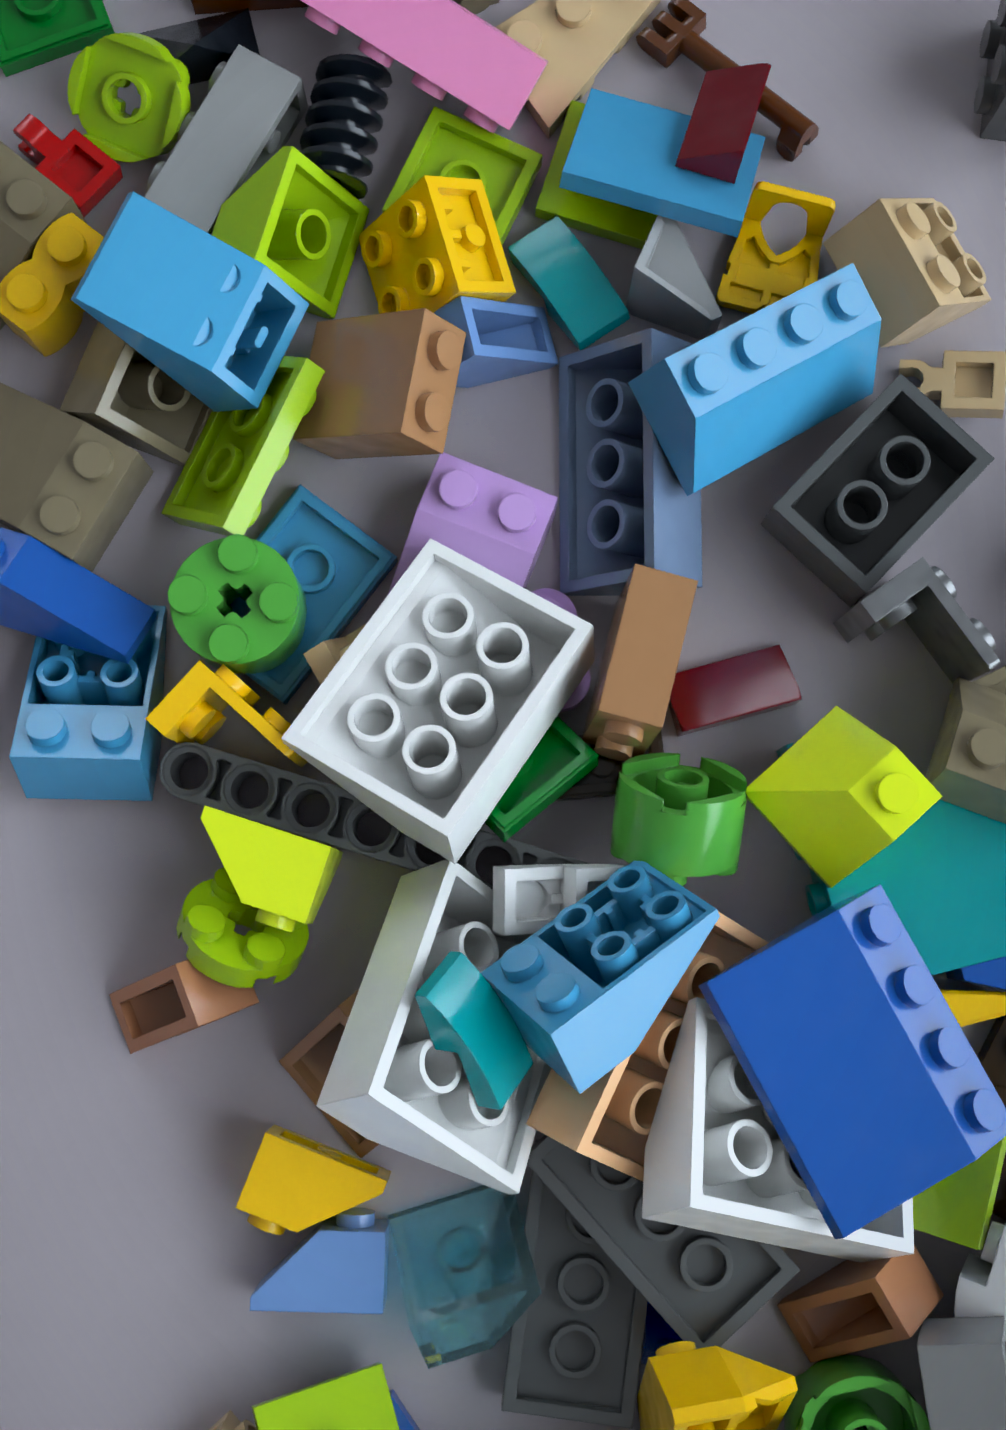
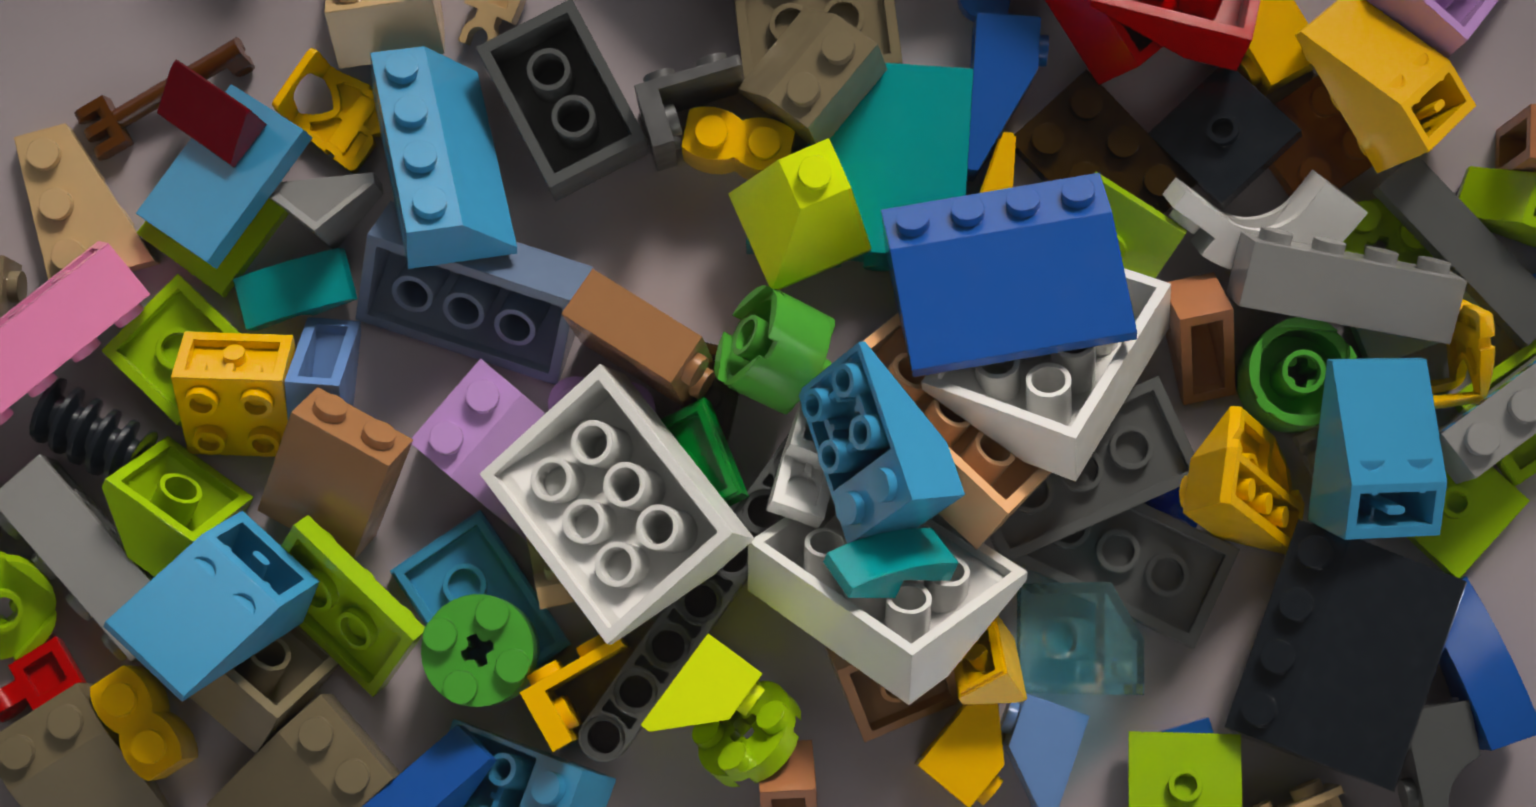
camera: 70 degrees left, 0 degrees up
(394, 1185) = (991, 669): none -> yellow slope
(732, 690) = (685, 270): dark red slope -> none
(891, 684) = (723, 143): none -> yellow brick

